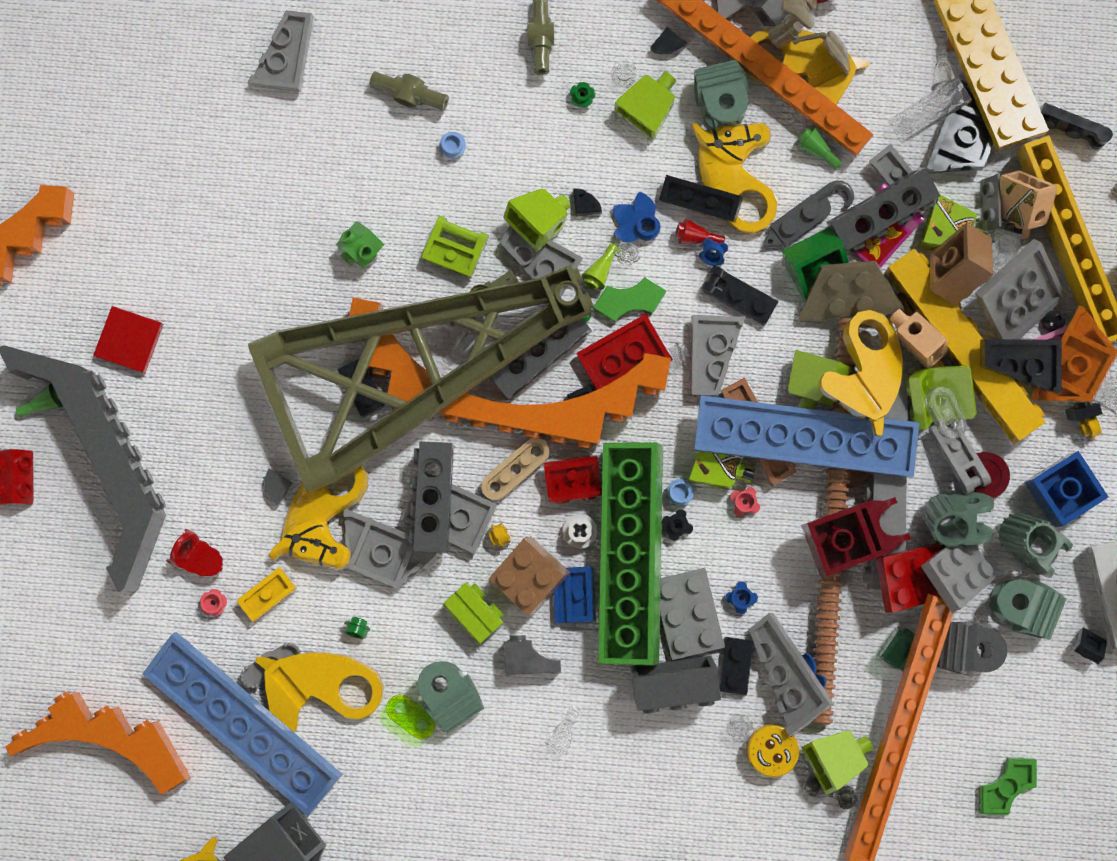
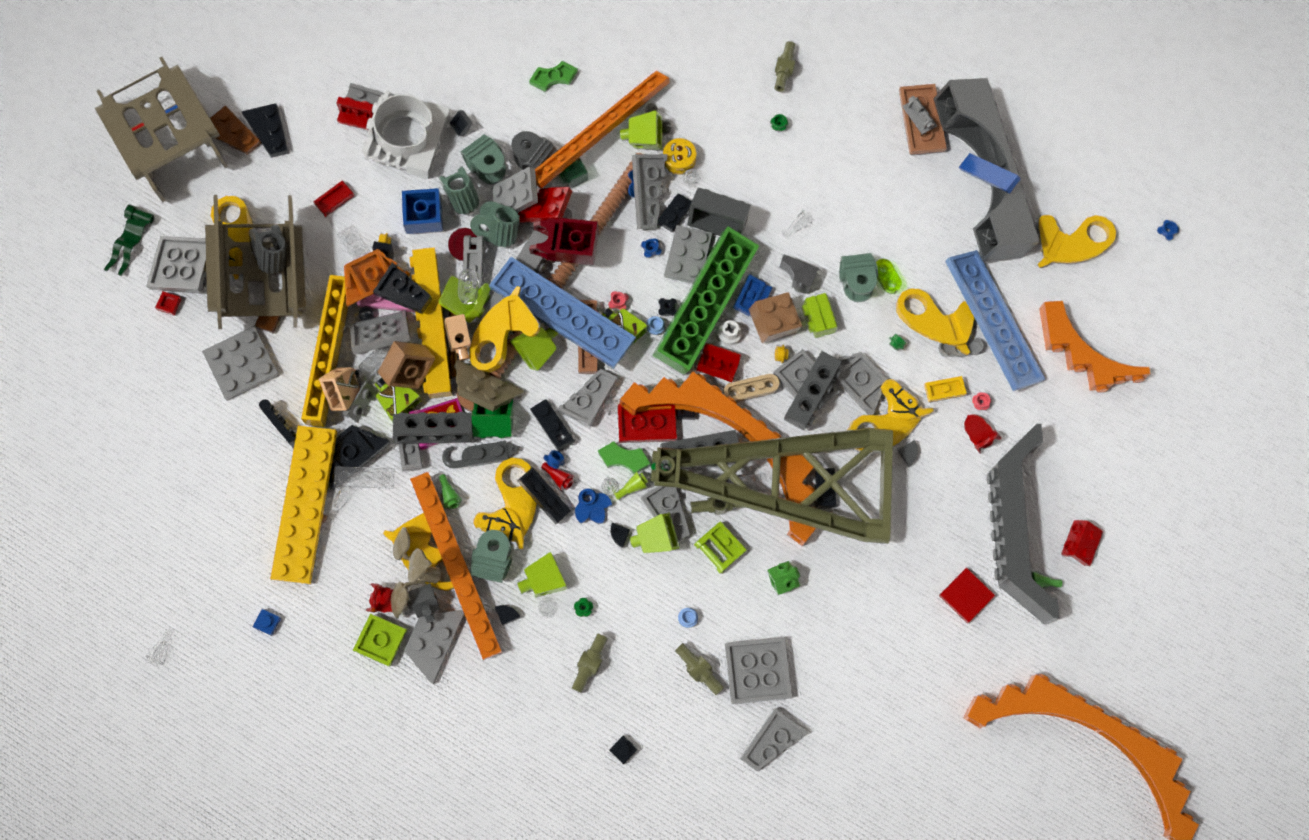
camera: 160 degrees left, 10 degrees down
(339, 123) = (758, 670): none -> light grey plate

